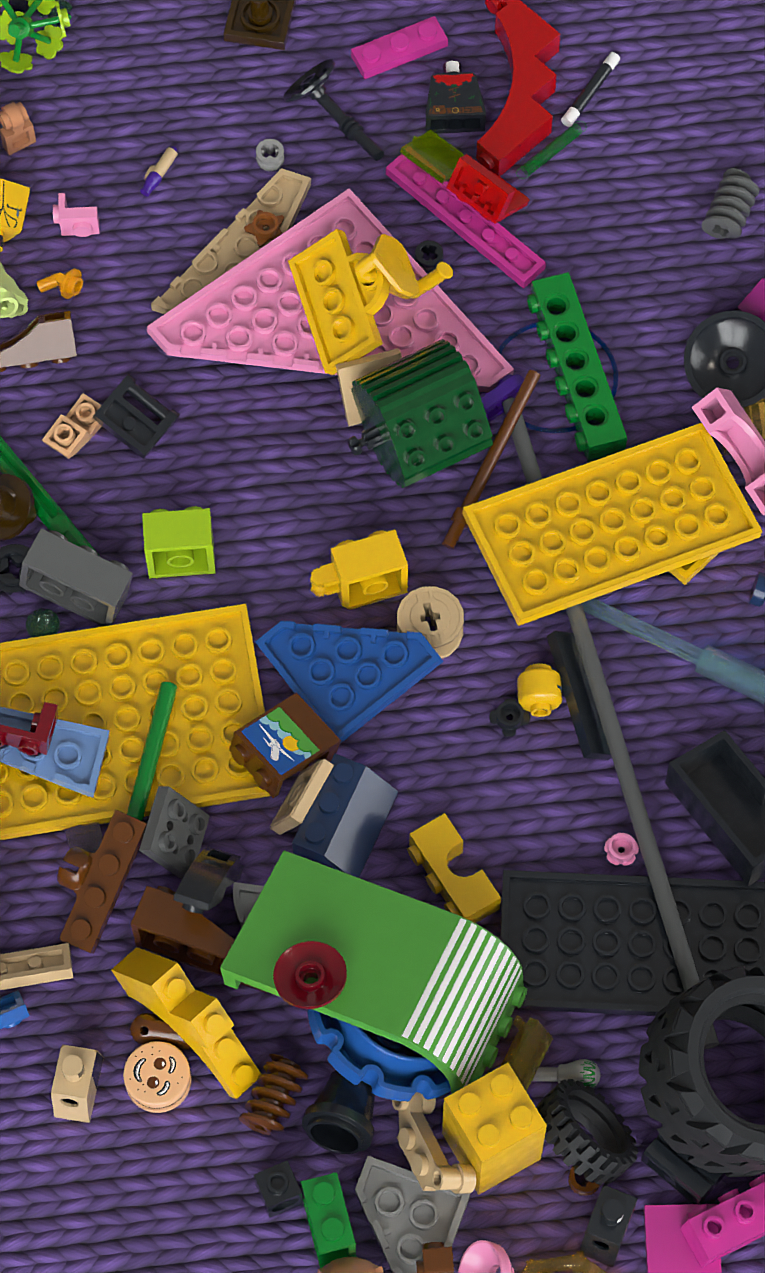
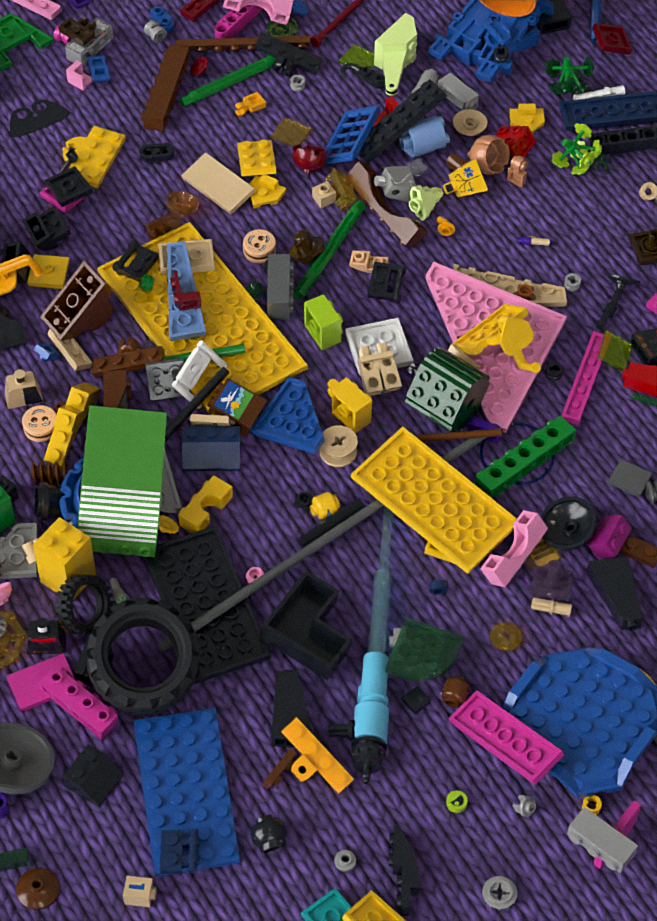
camera: 65 degrees right, 10 degrees down
(76, 220) = (483, 217): bright pink bracket -> none
(189, 779) = (194, 368): none -> white plate
(208, 879) = (140, 392): black slope -> none
(240, 800) = (195, 402): none -> black piece
(259, 482) = (379, 332): none -> white plate
(308, 961) = (96, 435): dark red dish -> none
(318, 500) = (378, 370): none -> tan hips
(485, 190) = (604, 378): red bracket -> none
(527, 1049) = (116, 569): clear yellow hinge -> none
(675, 244) = (629, 478): none -> dark grey piece

